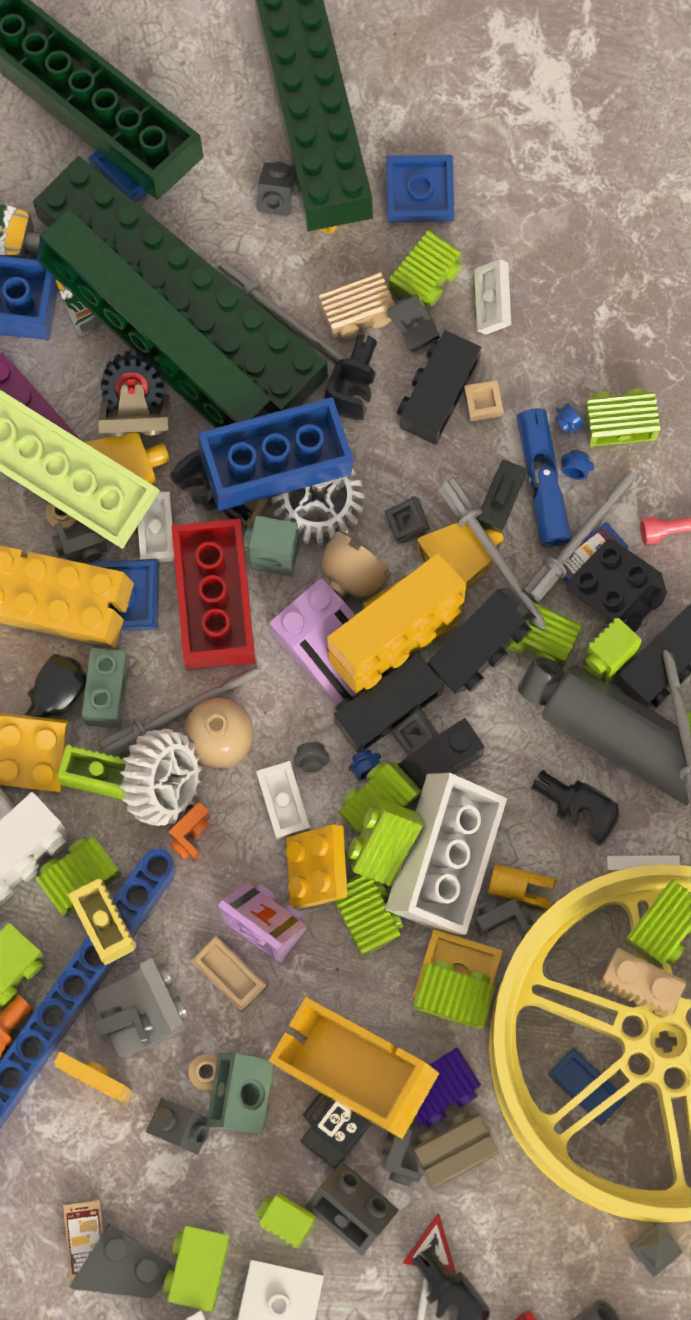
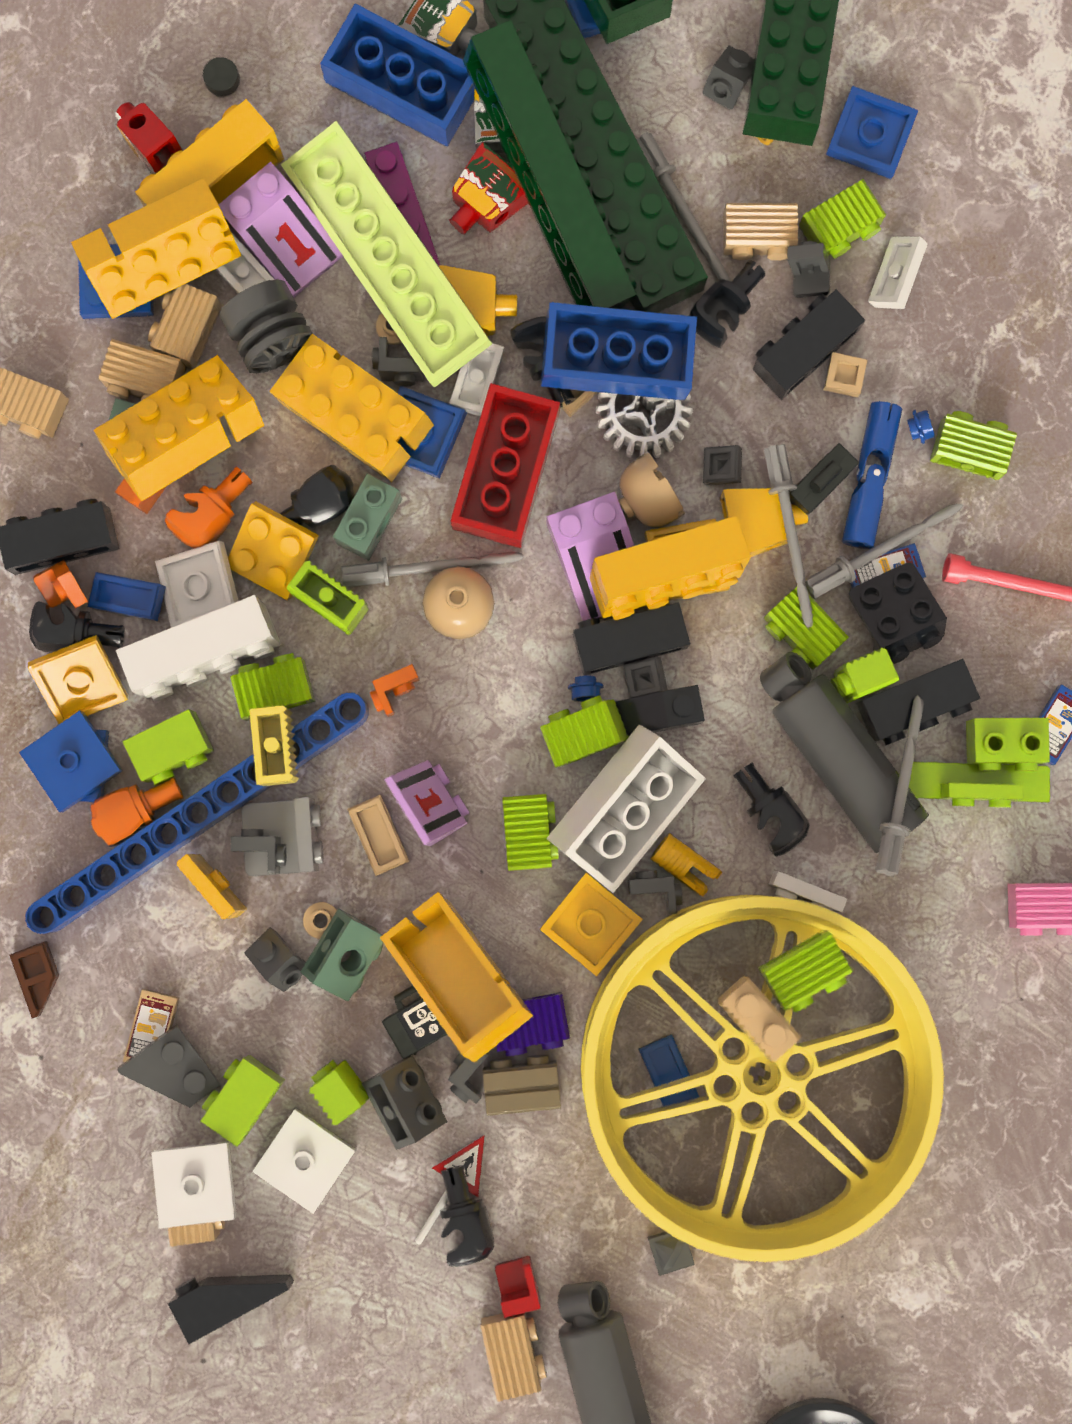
camera: 20 degrees right, 10 degrees up
(90, 356) = (486, 192): none -> torso
(133, 397) = (504, 239): plate -> none
(160, 777) = (384, 626): white gear -> none
(272, 545) = (581, 440): sand green brick -> none
(283, 800) = (493, 692): white plate -> none
(311, 756) = (536, 661): dark grey plate -> none
(316, 867) = (498, 770): yellow plate -> none
(384, 841) = (571, 774): lime brick -> none
(454, 995) = (578, 946): lime brick -> none
(482, 641) = (745, 616): black brick -> none
(576, 465) = (909, 475): blue plate -> none

